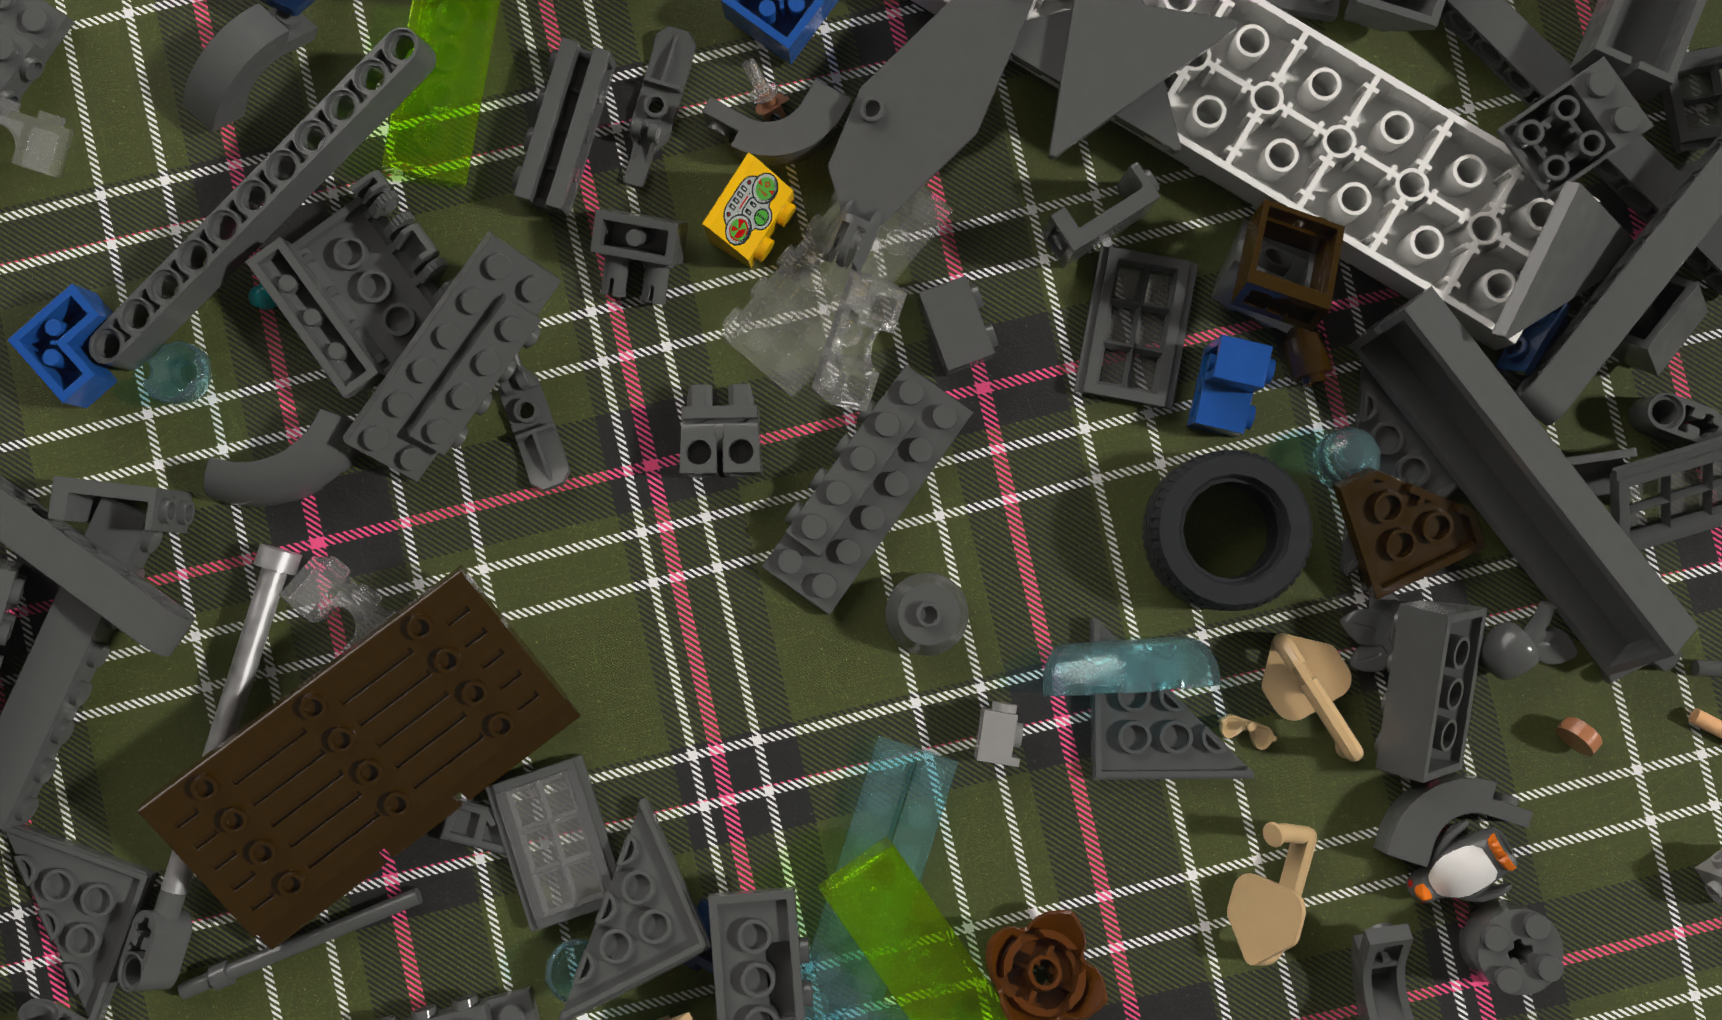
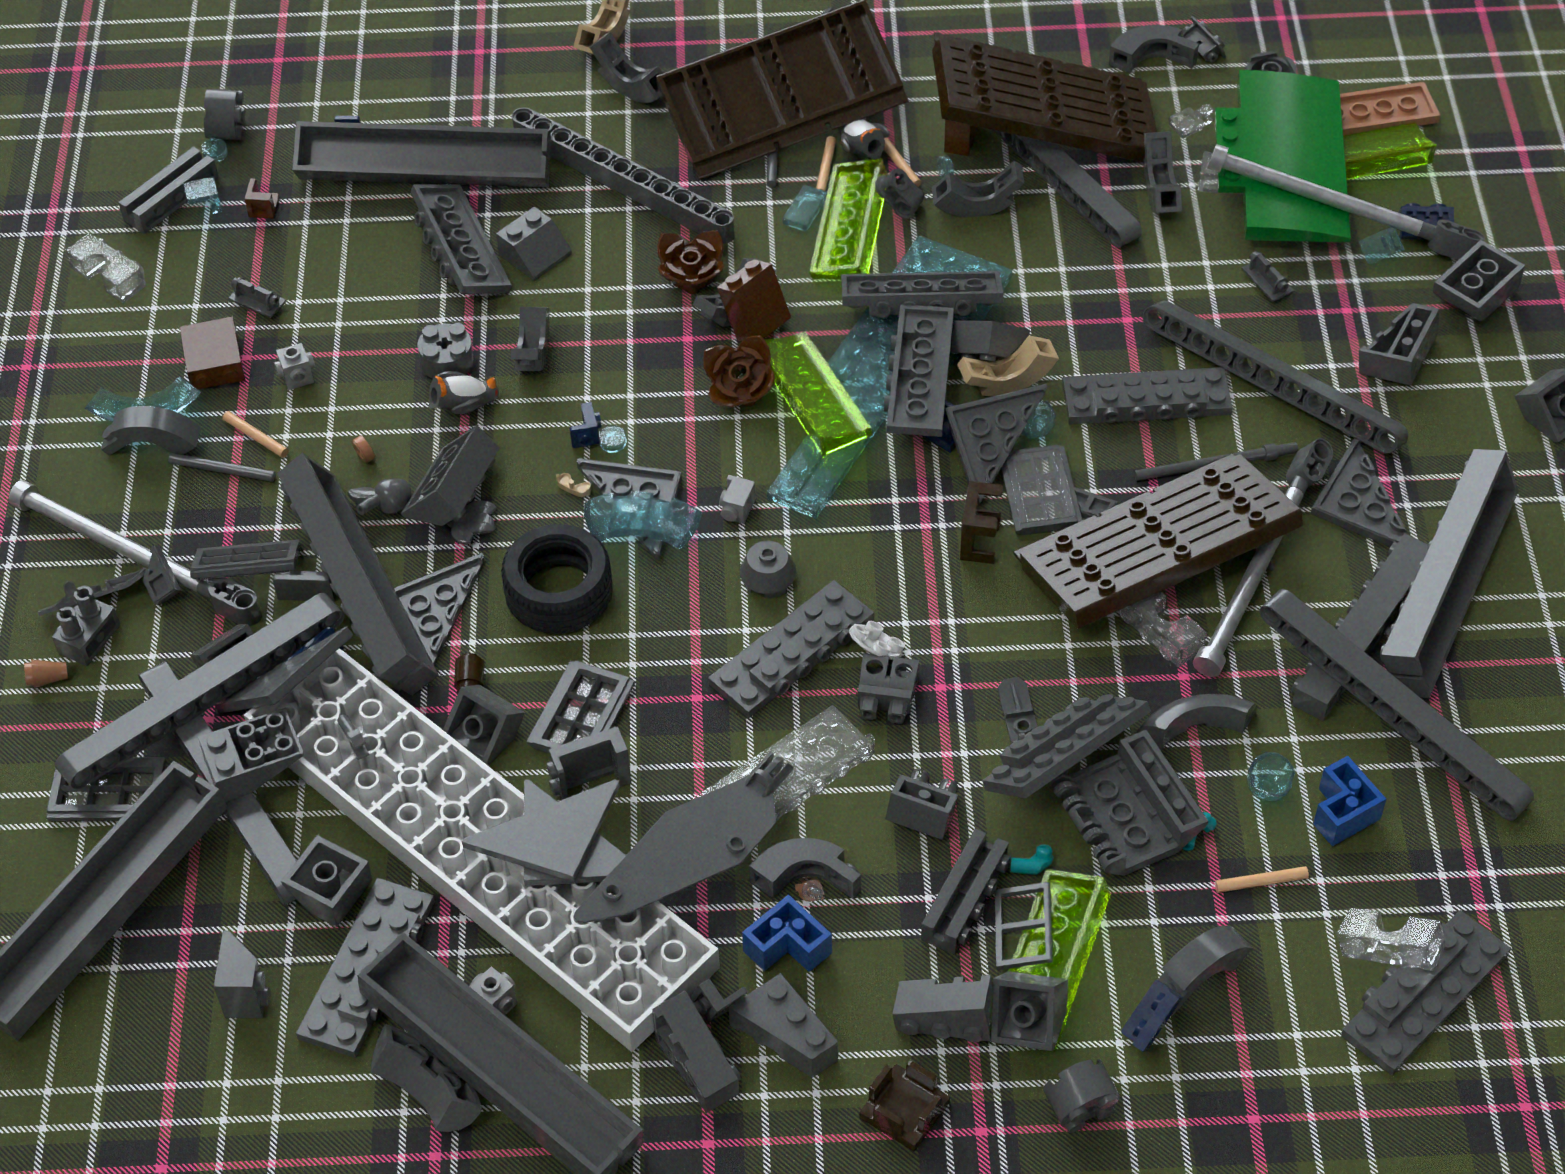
camera: 165 degrees left, 35 degrees down
(78, 498) = (1288, 687): dark grey panel -> none
(166, 231) = (1261, 879): none -> light nougat bar
(283, 196) = (1184, 873): dark grey beam -> none
(452, 94) = (1001, 928): none -> window
(482, 194) = (1035, 864): none -> teal arm
(641, 742) = (979, 522): none -> dark brown panel
(665, 83) = (888, 918): dark grey piece -> none
(748, 508) = (875, 641): none -> white dish
(750, 212) = (841, 810): slope -> none
(846, 368) = (769, 725): clear arch -> none
(957, 325) = (707, 727): dark grey brick -> none
(1211, 829) = (612, 438): none -> clear light blue tile
(1226, 383) = (529, 661): blue brick -> none
(1250, 846) = (587, 433): none -> dark blue bracket
(1271, 914) = (590, 383): tan piece -> none
(1279, 297) = (453, 685): dark brown window -> none
(1306, 679) = (529, 503): tan piece -> none
(1344, 454) = (462, 612): clear light blue hair -> none
(1403, 530) = (439, 563): dark brown plate -> none
(1426, 807) = (489, 413): dark grey arch -> none
(1429, 163) = (354, 736): none -> dark grey bar

